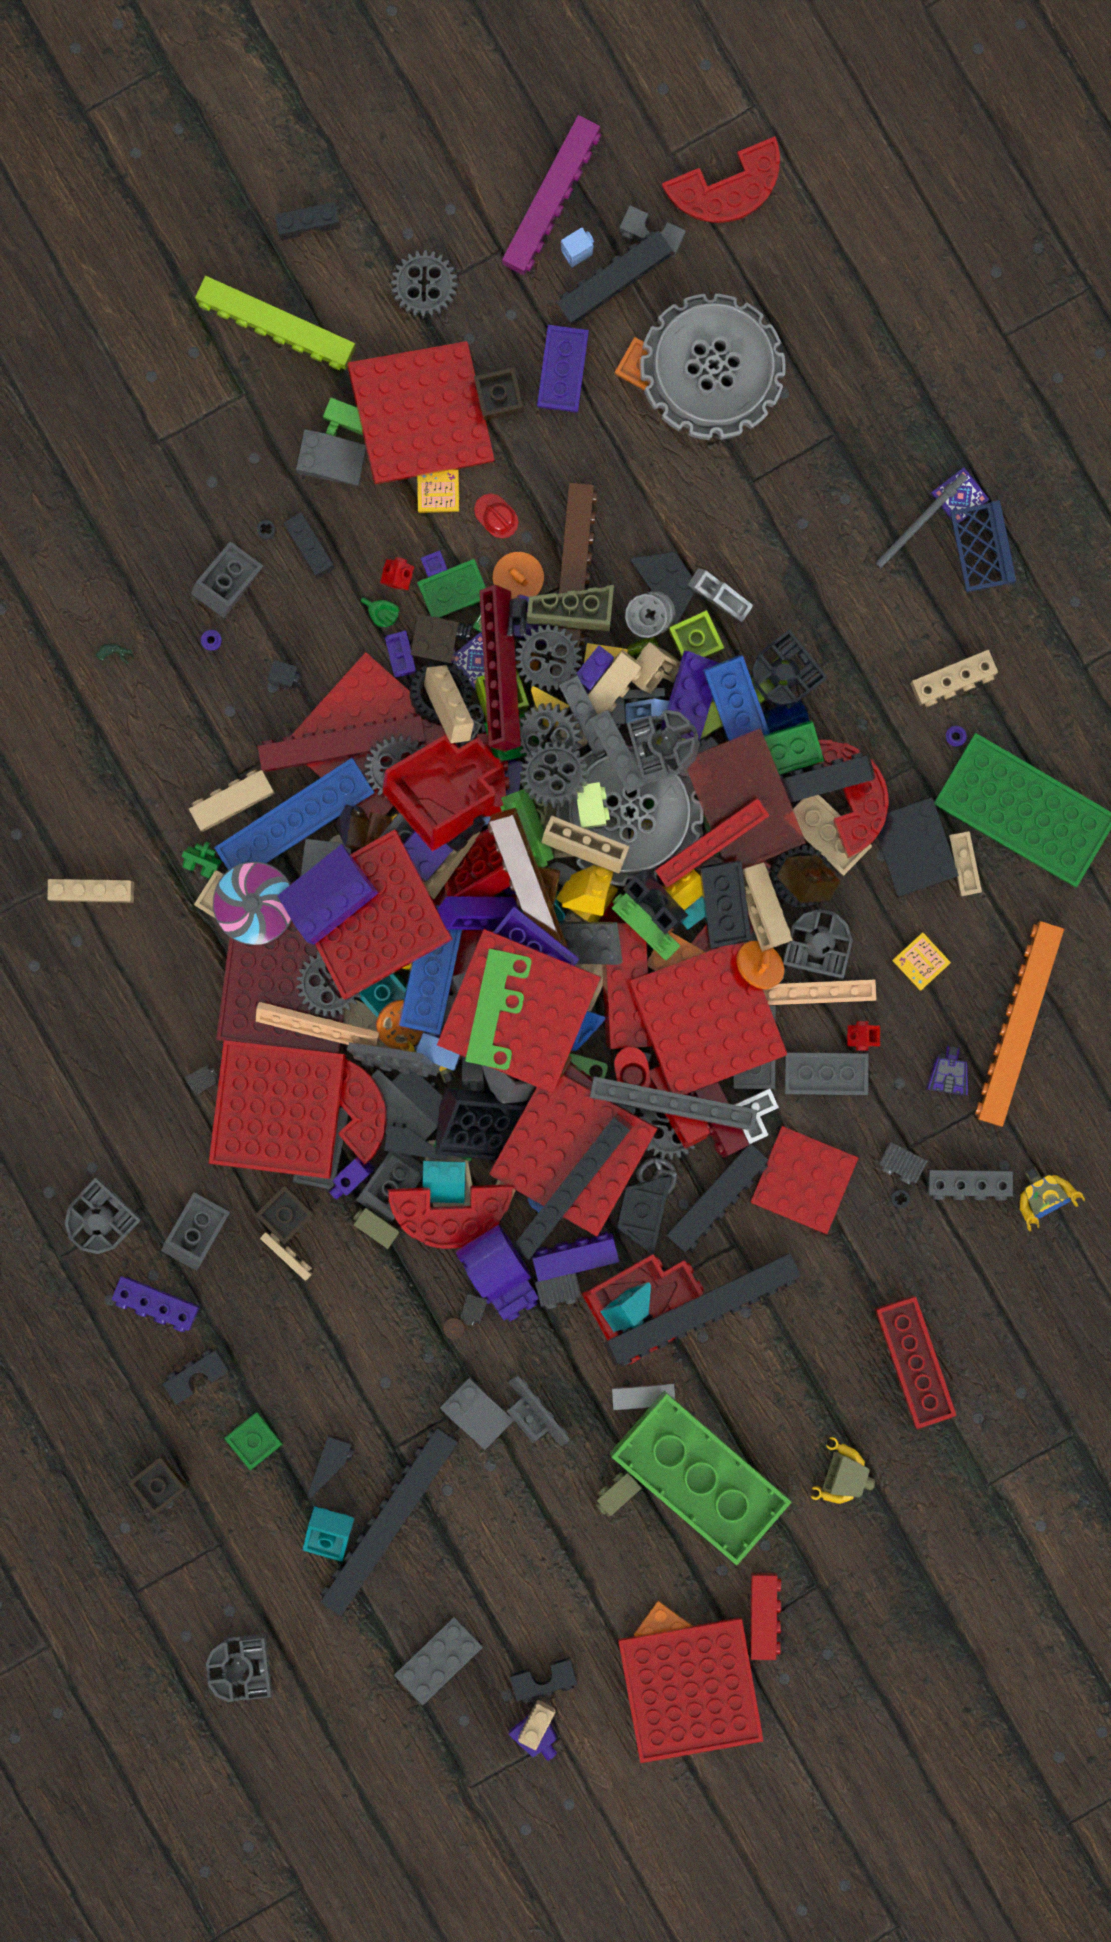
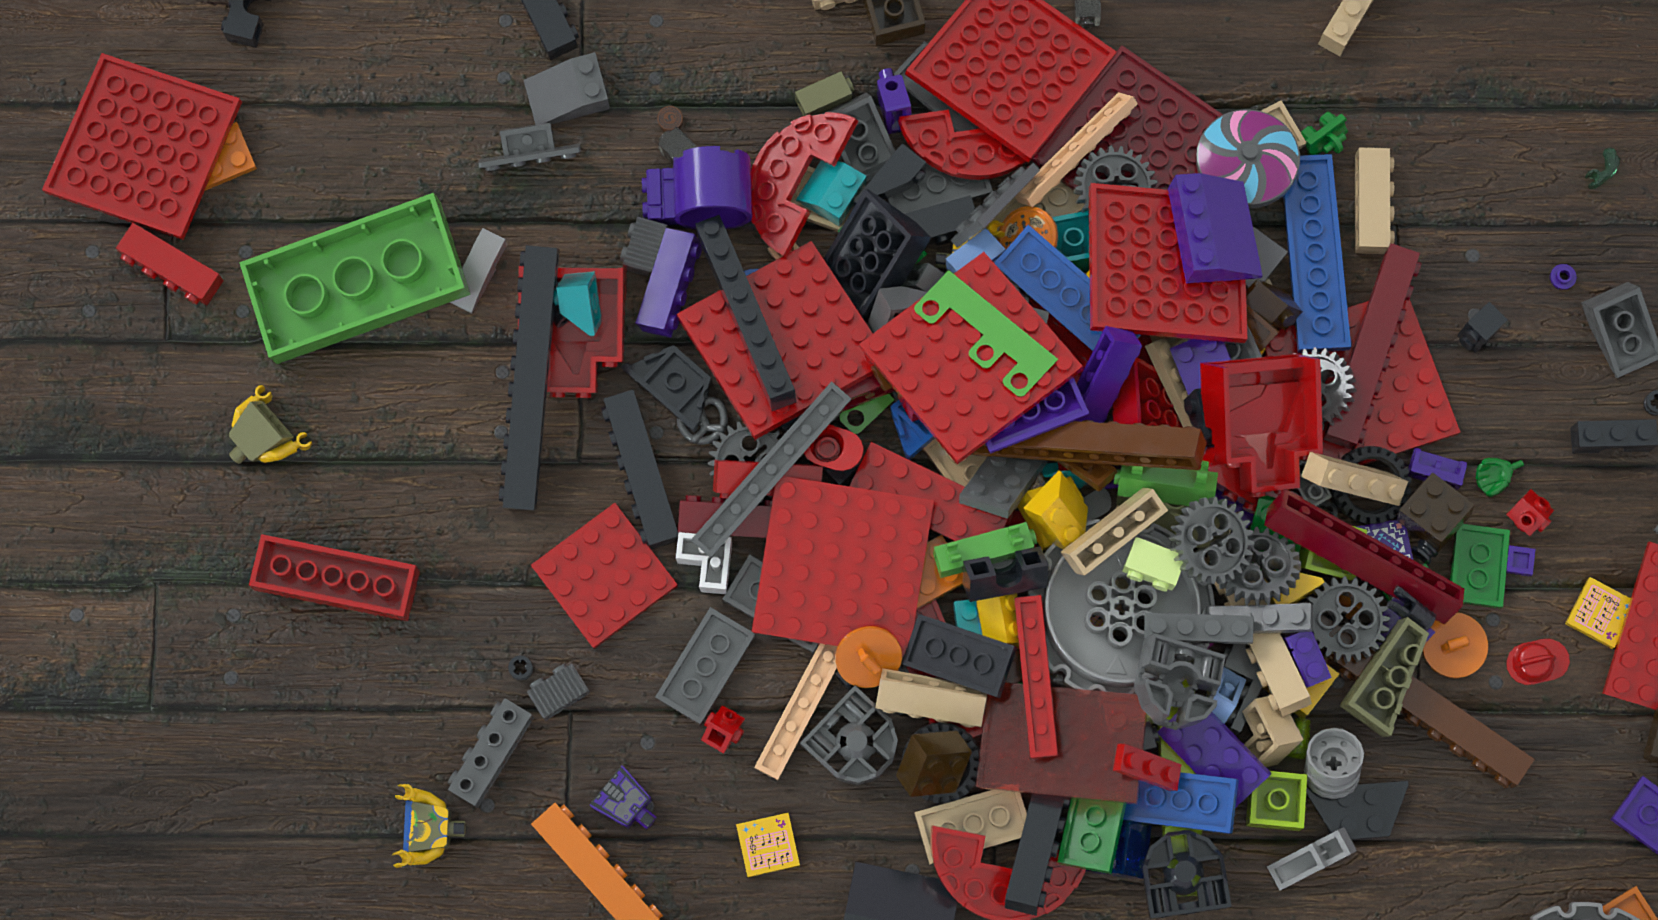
camera: 115 degrees right, 10 degrees down
(617, 1494) = (391, 182): olive brick -> none
(732, 734) = (1147, 767): none -> red plate

